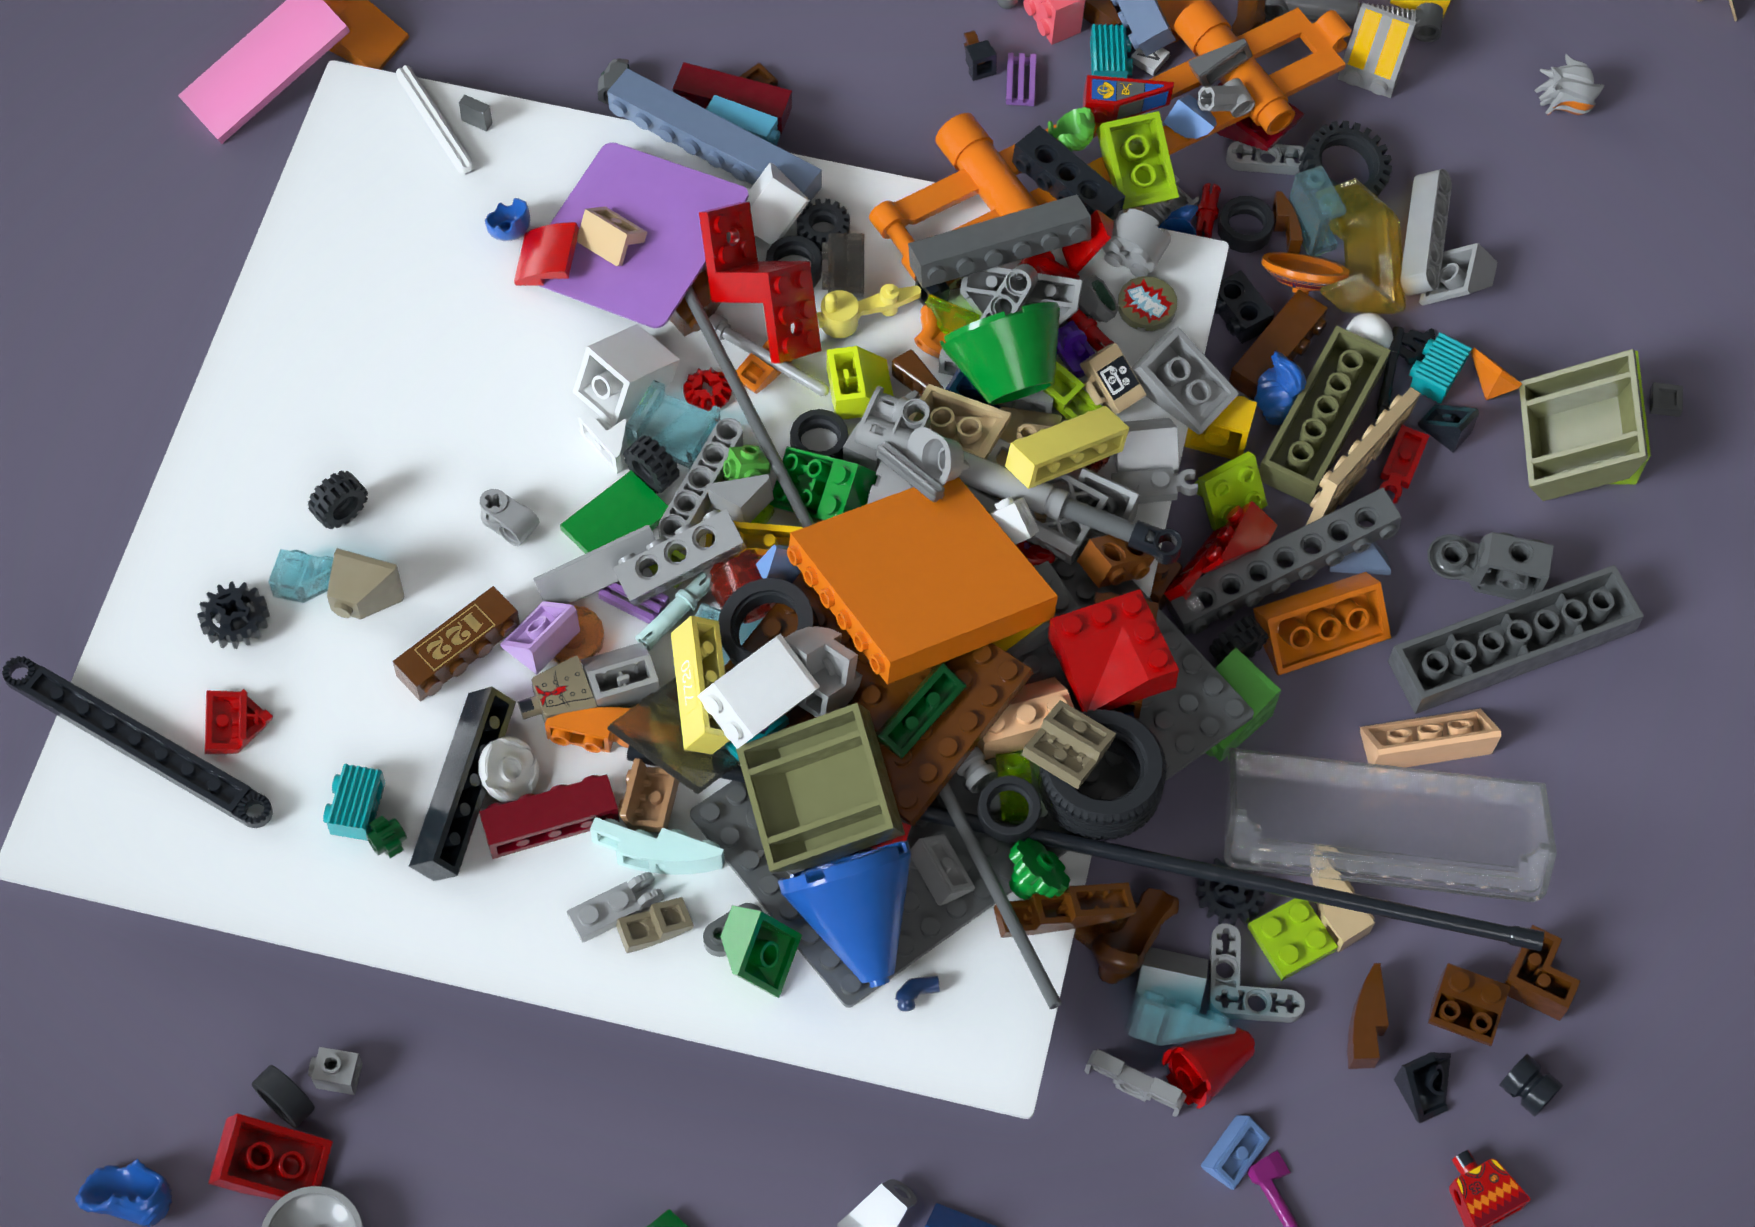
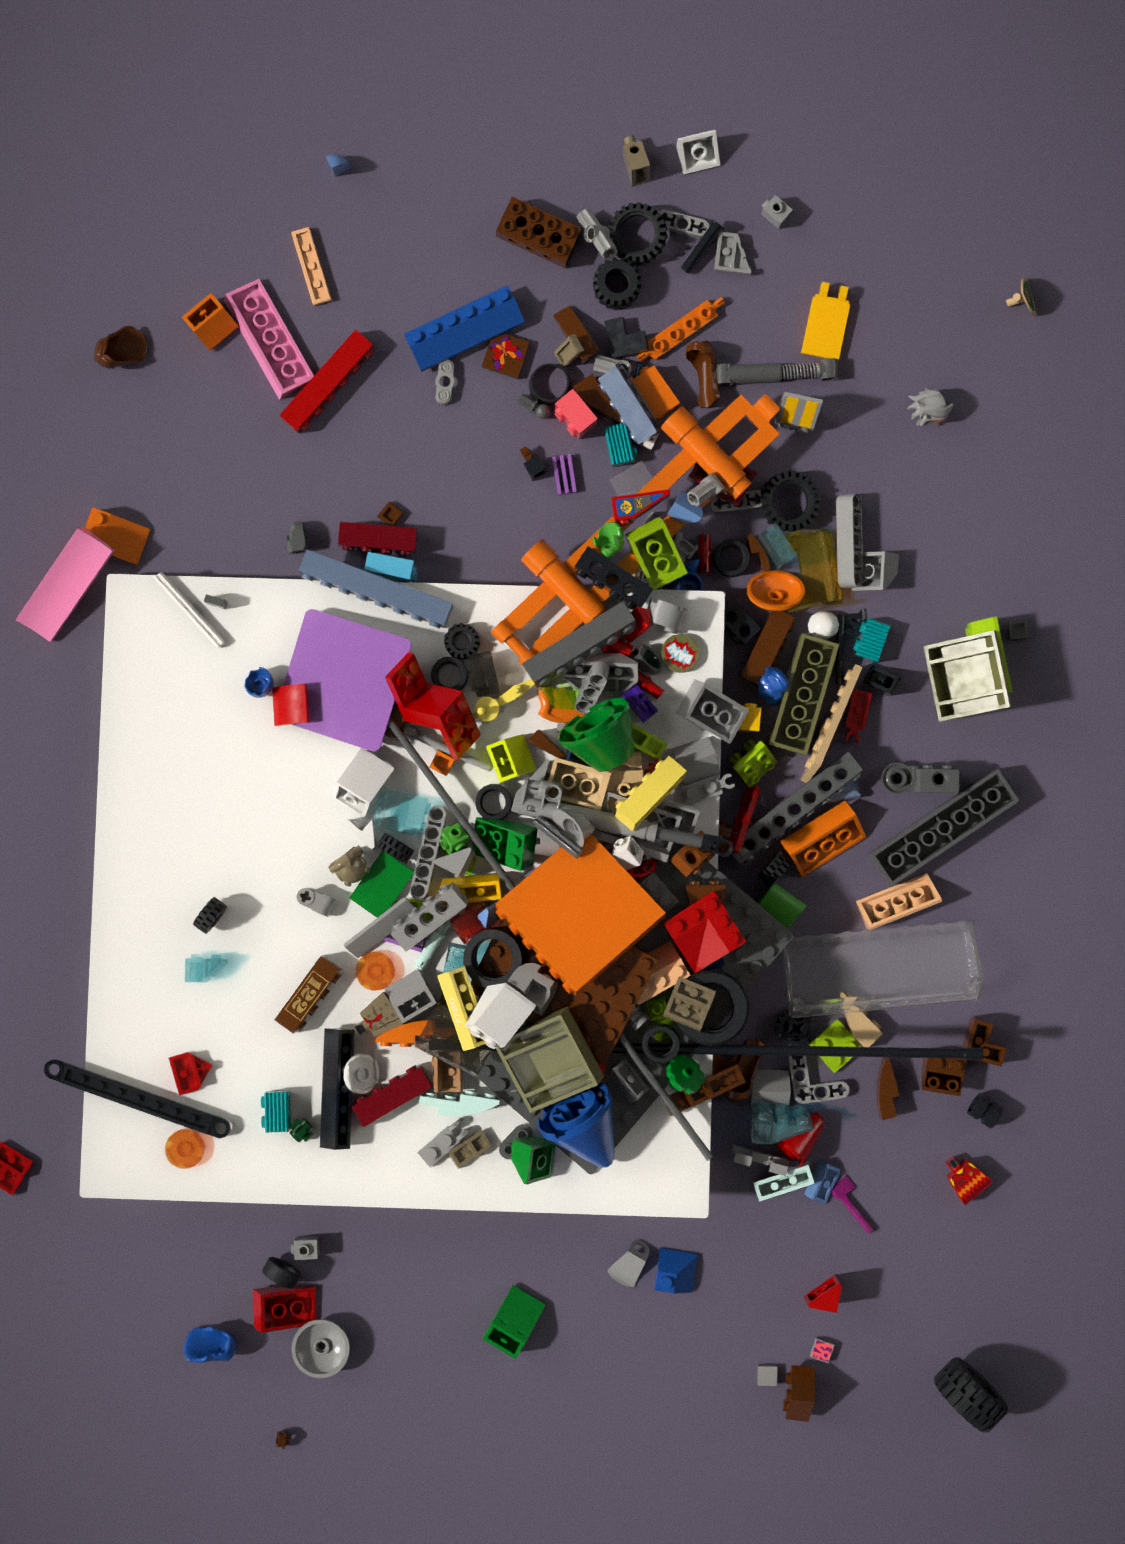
camera: 15 degrees left, 25 degrees up
(187, 832) = (184, 1148): none -> clear orange tile
(233, 615) = (169, 1012): black gear -> none
(362, 585) = (239, 972): dark tan slope -> none
(543, 635) = (356, 980): lavender slope -> none
(574, 475) = (350, 866): none -> dark tan helmet
(608, 234) = (328, 685): tan panel -> none
(697, 396) = (414, 788): red gear -> none
(774, 204) = (425, 636): white slope -> none
(913, 988) = (625, 1158): dark blue arm -> none
(920, 710) = (596, 999): dark green slope -> none
(1111, 379) = (668, 723): tan piece -> none
(1168, 1129) = (782, 1184): none -> light aqua brick
(1219, 62) = (692, 466): dark grey slope -> none
(1245, 532) = (766, 799): red slope -> none
(1425, 1084) = (925, 1120): black slope -> none
(1492, 376) = (906, 639): orange slope -> none

